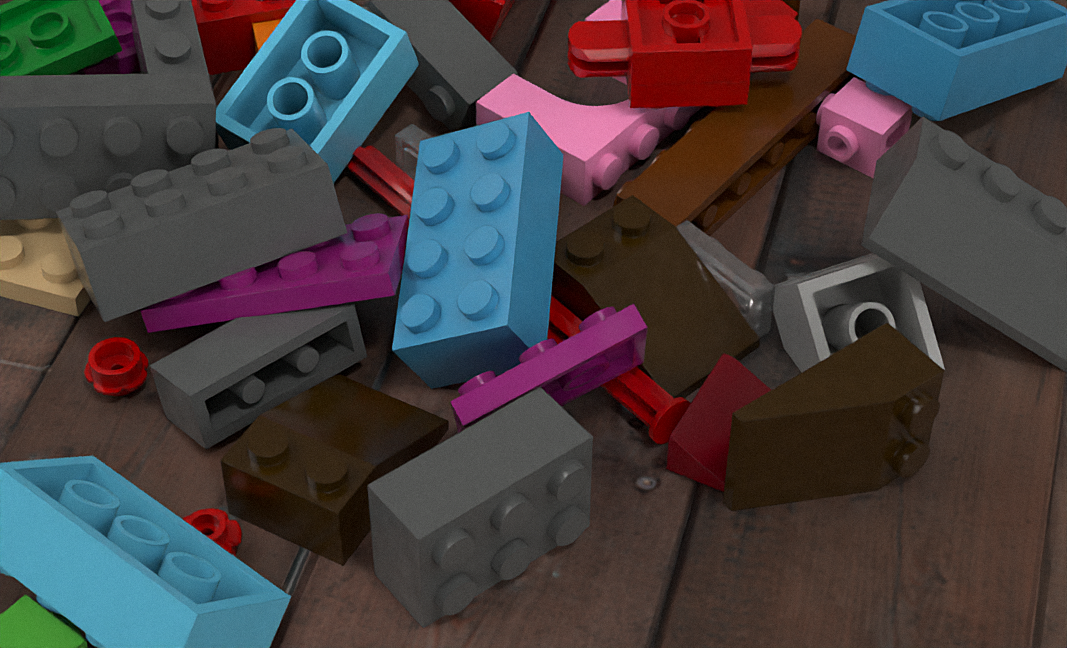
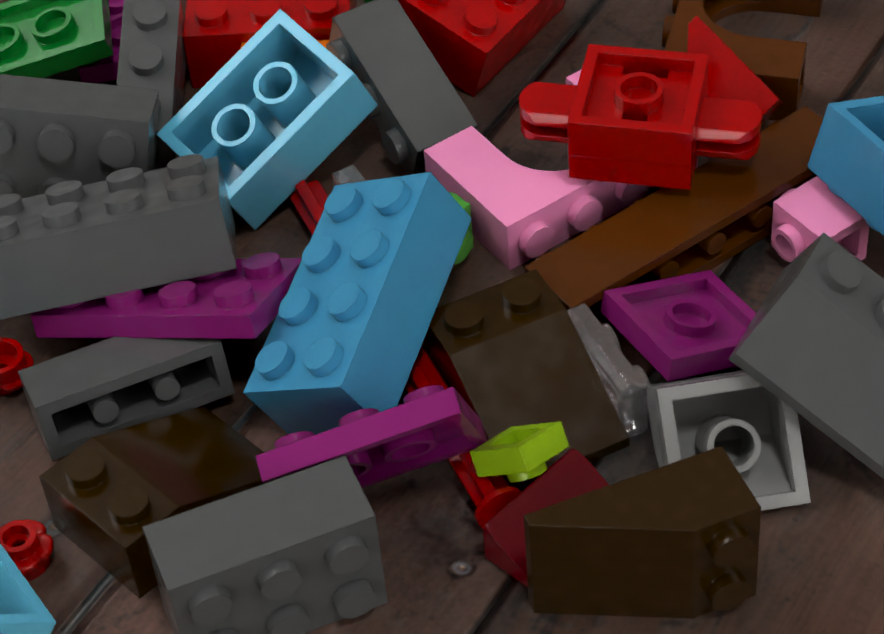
camera: 20 degrees right, 0 degrees up
(680, 362) = (520, 451): none -> lime plate
(782, 227) = (680, 322): none -> magenta plate

